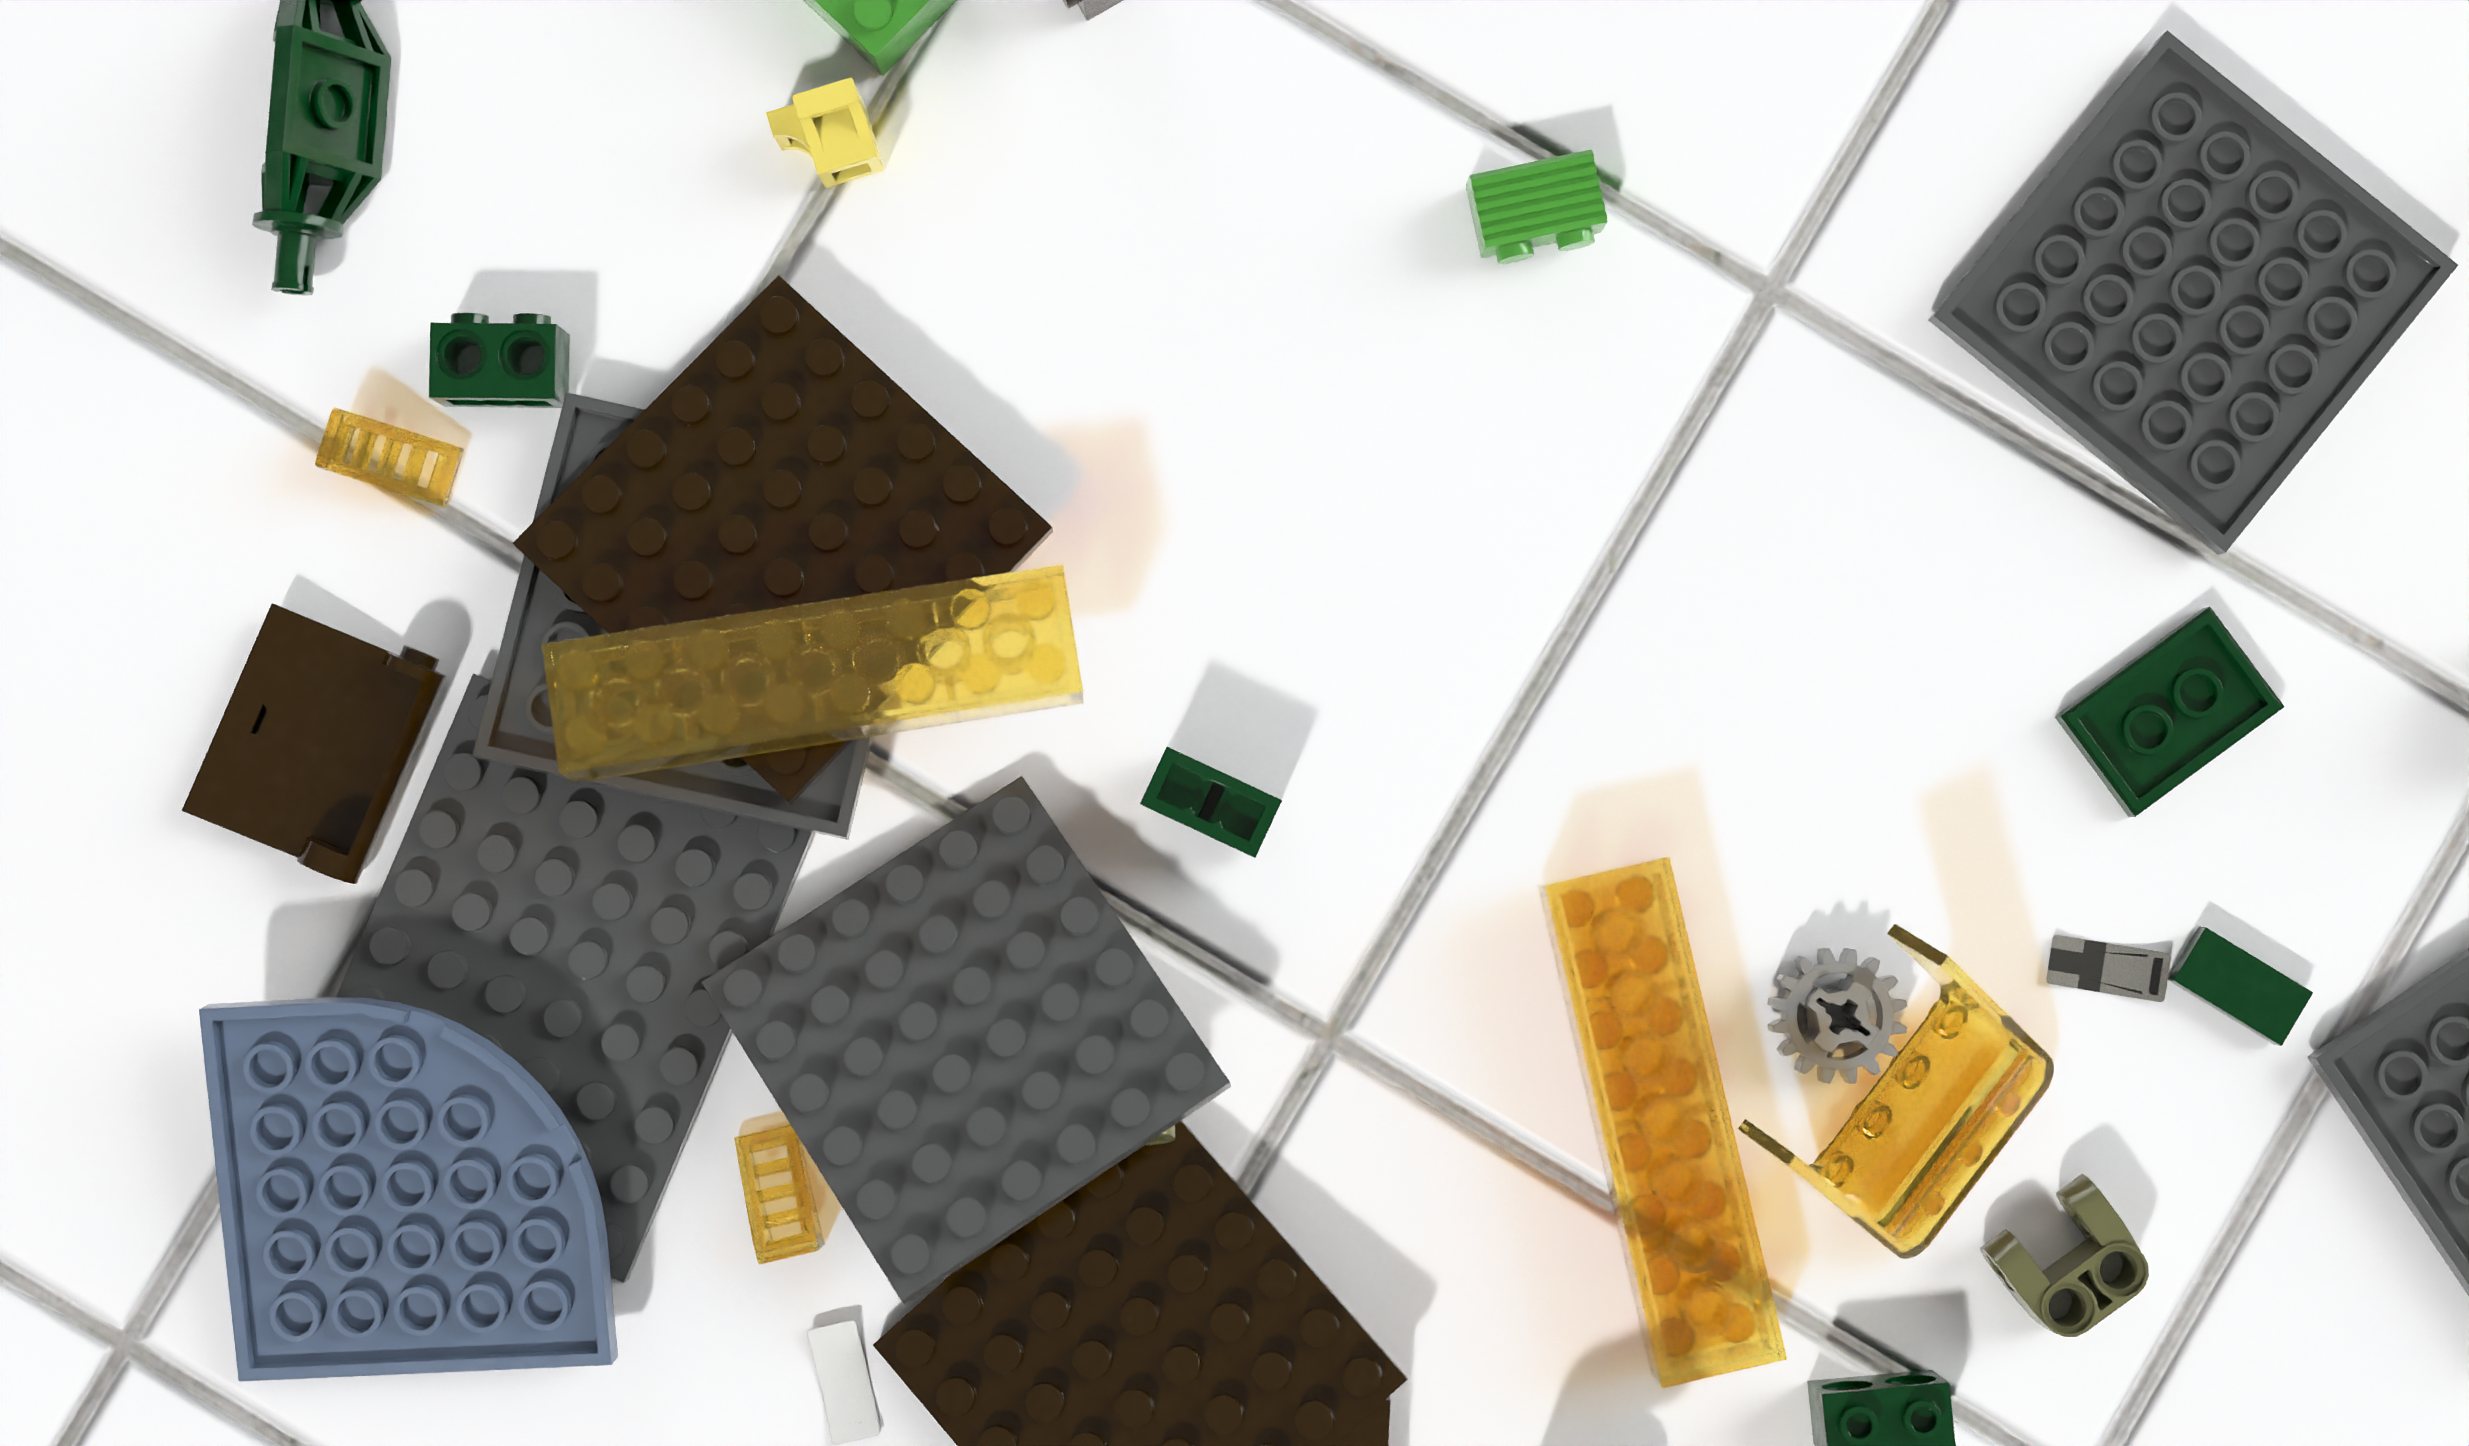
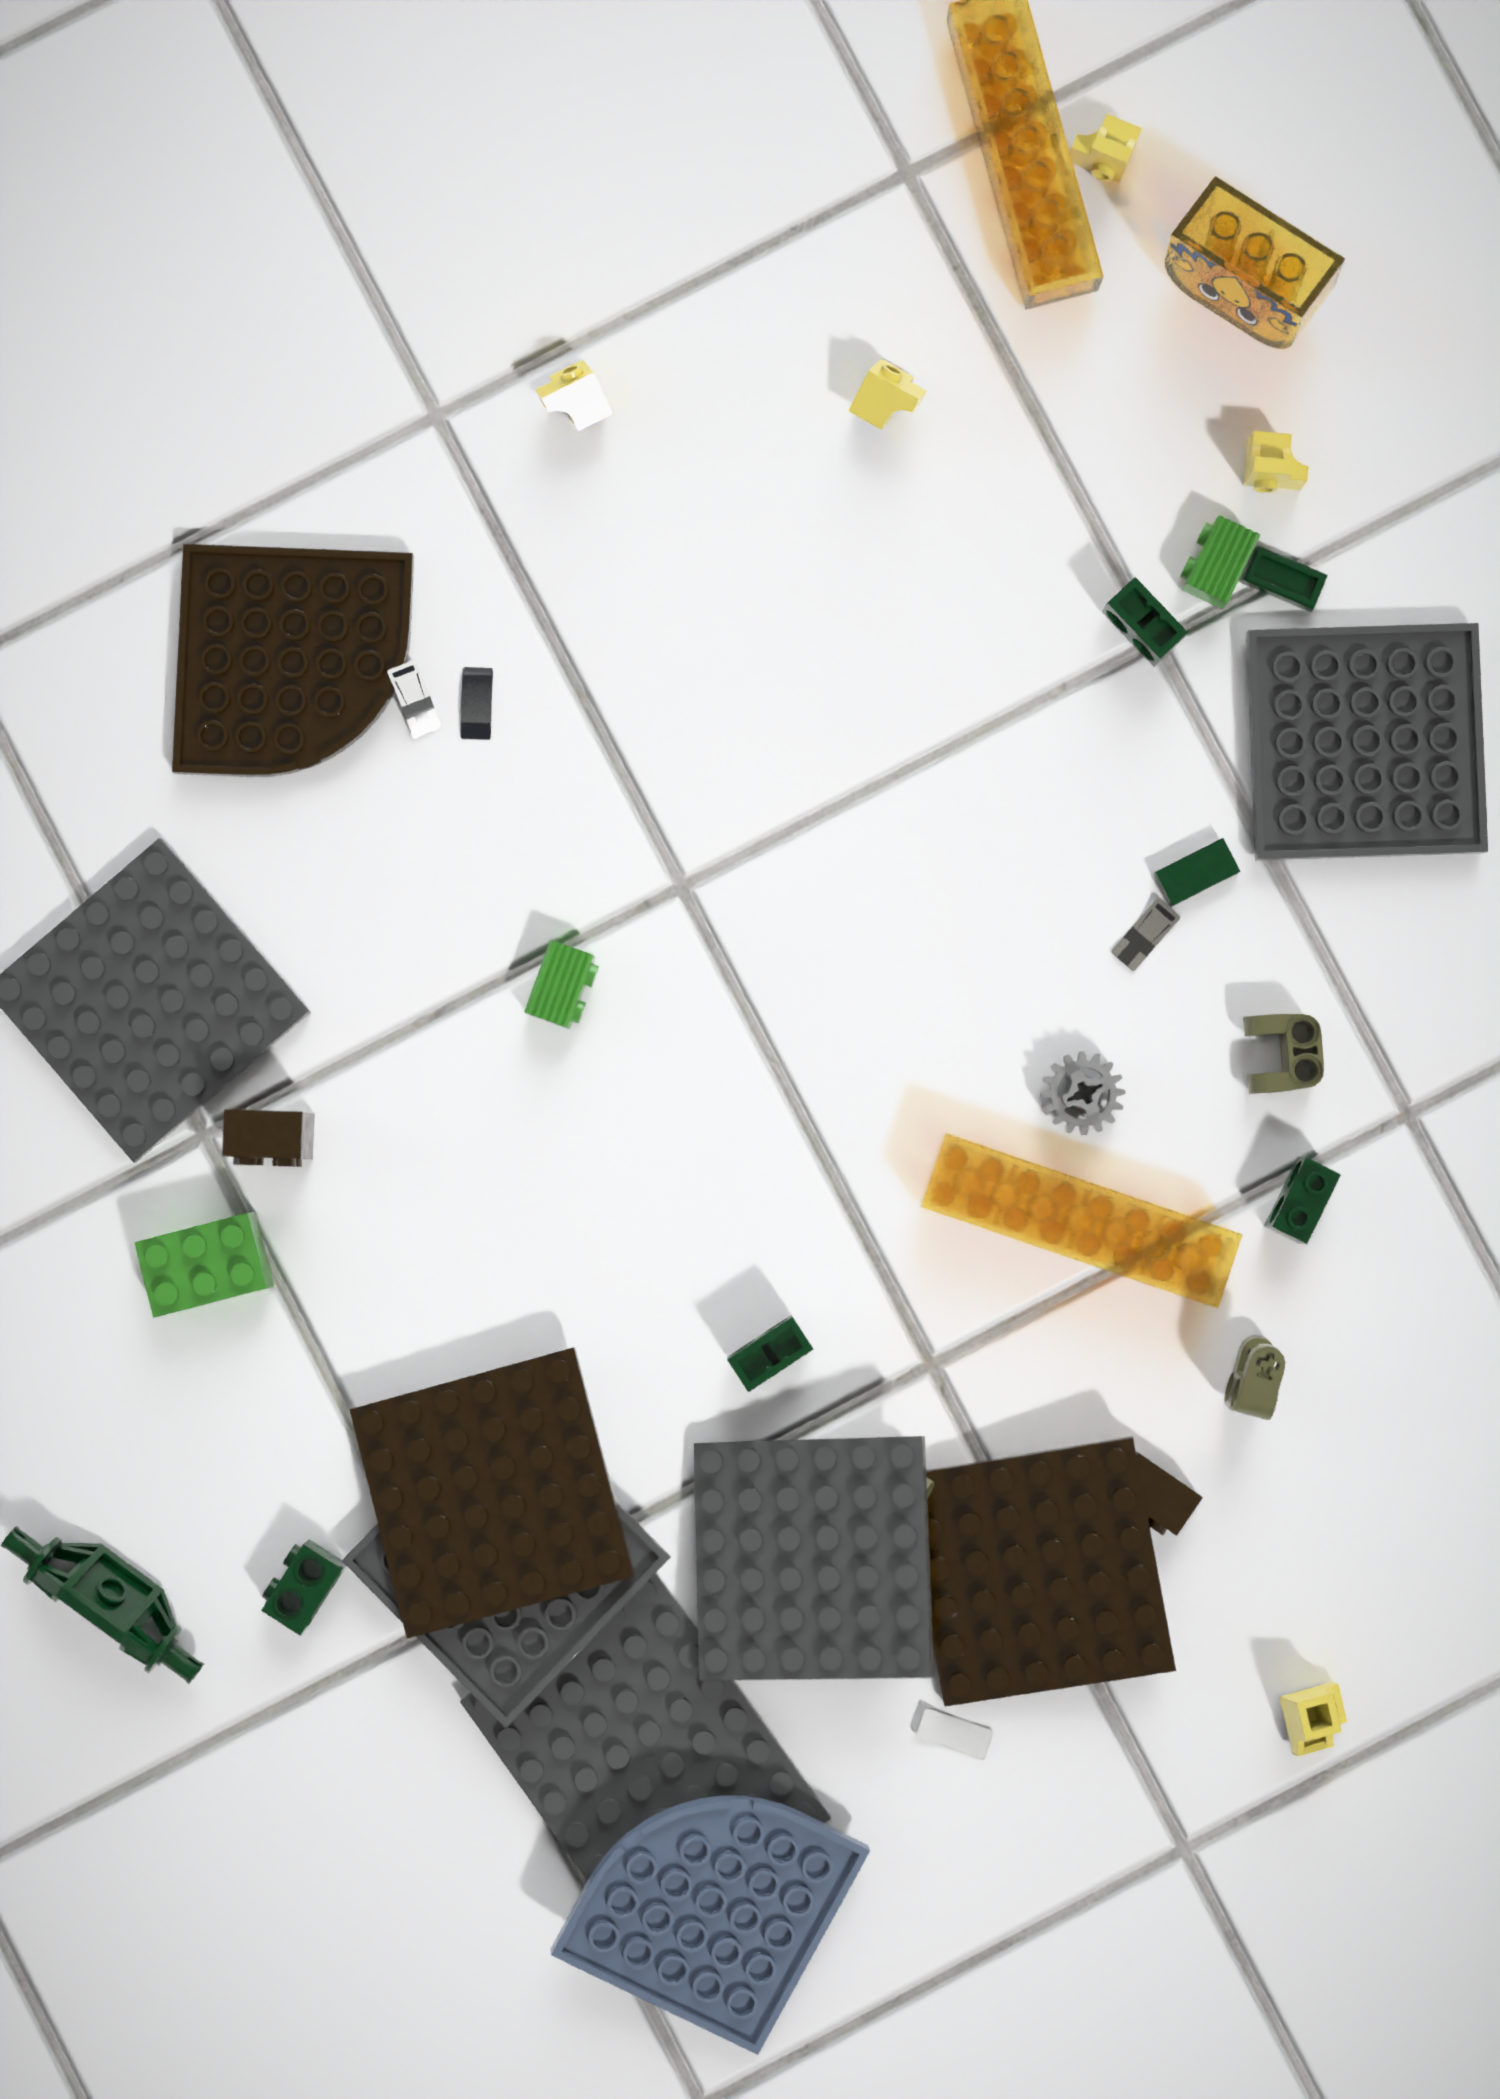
camera: 55 degrees left, 0 degrees up
(327, 744) = (449, 1801): dark brown door -> none
(338, 439) = (292, 1700): clear yellow slope -> none
(760, 1222) = (843, 1726): clear yellow slope -> none
(812, 674) = (576, 1523): clear yellow brick -> none
(832, 129) = (289, 1331): light yellow brick -> none
(1930, 1116) = (1167, 1082): clear yellow windscreen -> none
(2169, 712) = (1032, 818): dark green tile -> none
(2193, 293) = (820, 669): dark grey plate -> none

